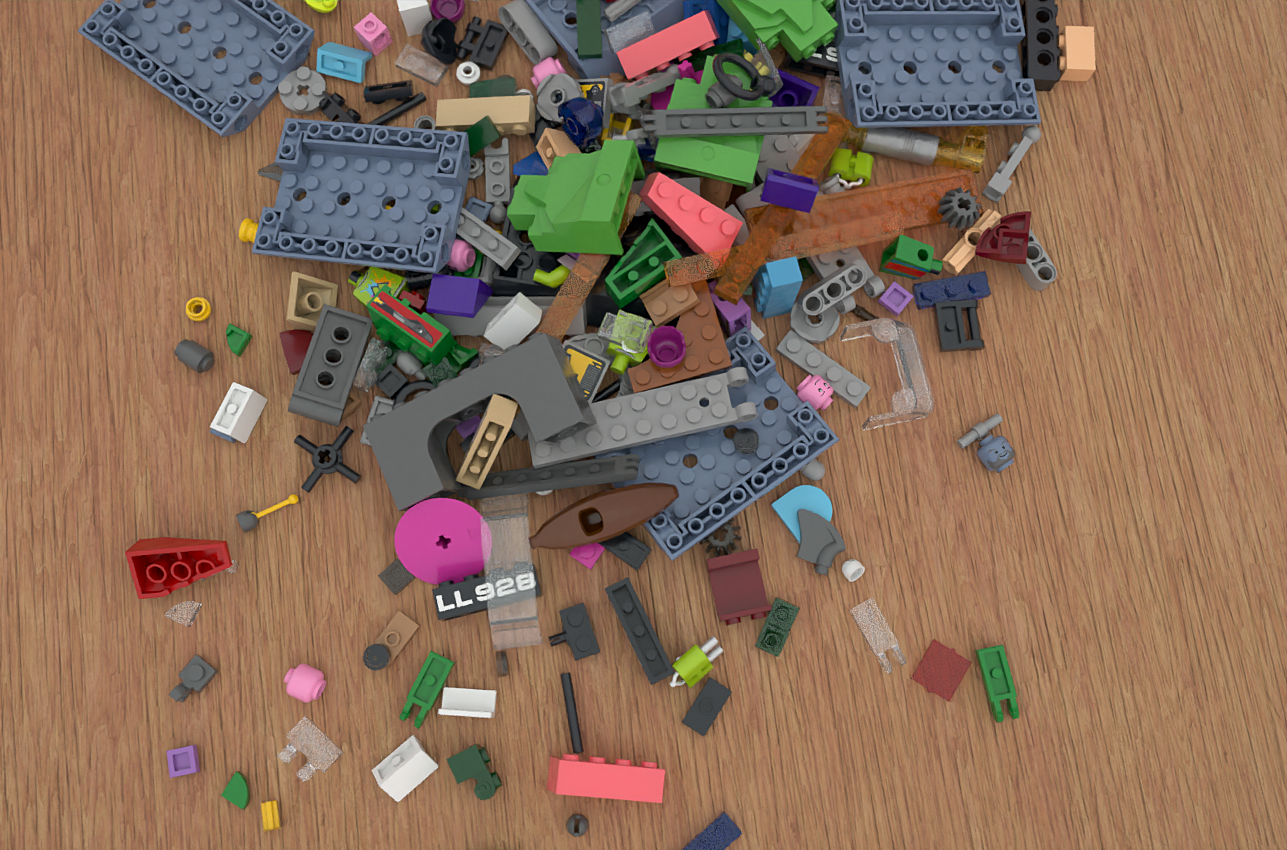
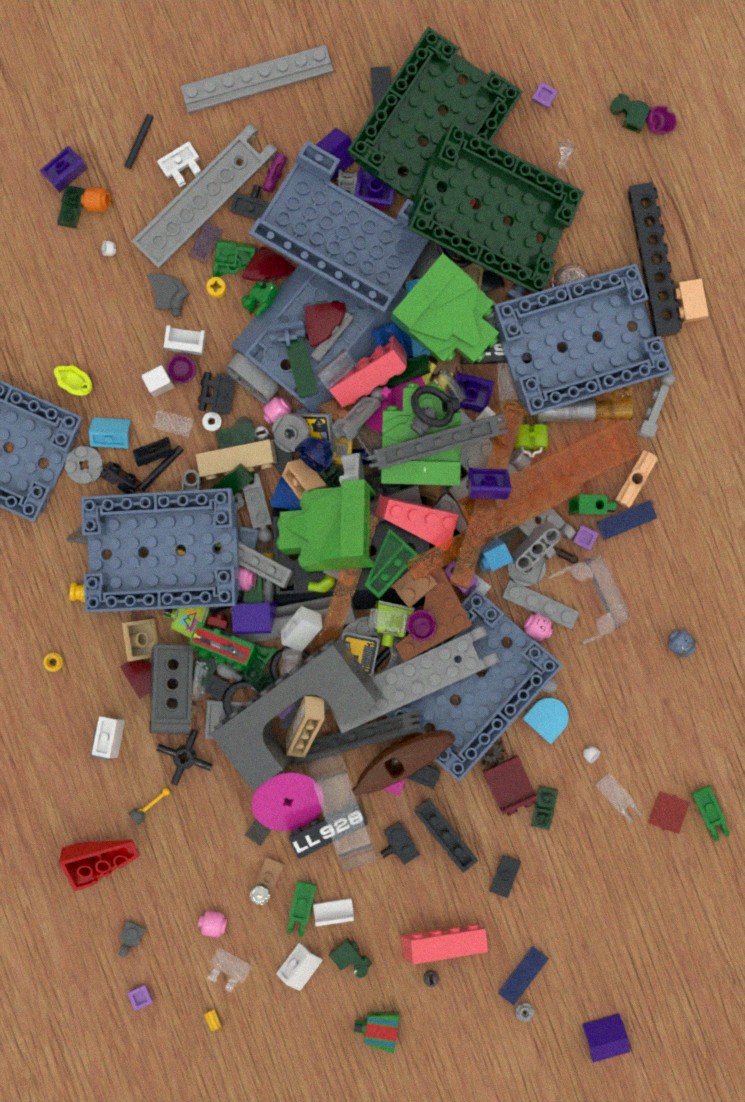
camera: 15 degrees left, 10 degrees up
(184, 612) = (109, 892): clear tile -> none
(194, 355) = (62, 700): dark grey brick -> none
(237, 339) = (89, 678): green tile -> none
(237, 791) = (184, 1008): green tile -> none
(373, 34) = (128, 406): bright pink brick -> none
(439, 40) = (183, 402): black piece -> none
(501, 663) = (350, 879): clear smoke tile -> none
(572, 713) = (409, 901): black bar -> none
(636, 135) = (361, 461): light grey plate -> none
(695, 663) = (491, 848): lime piece -> none
(746, 441) = (494, 678): black tile -> none
(818, 540) = (562, 739): dark grey arm -> none
(951, 327) = (631, 550): black plate -> none
(959, 208) = (628, 461): dark grey gear -> none
(979, 431) = (666, 627): light grey bar -> none
(1007, 240) = (662, 476): dark red brick -> none
(1040, 264) = (672, 477): light grey beam -> none

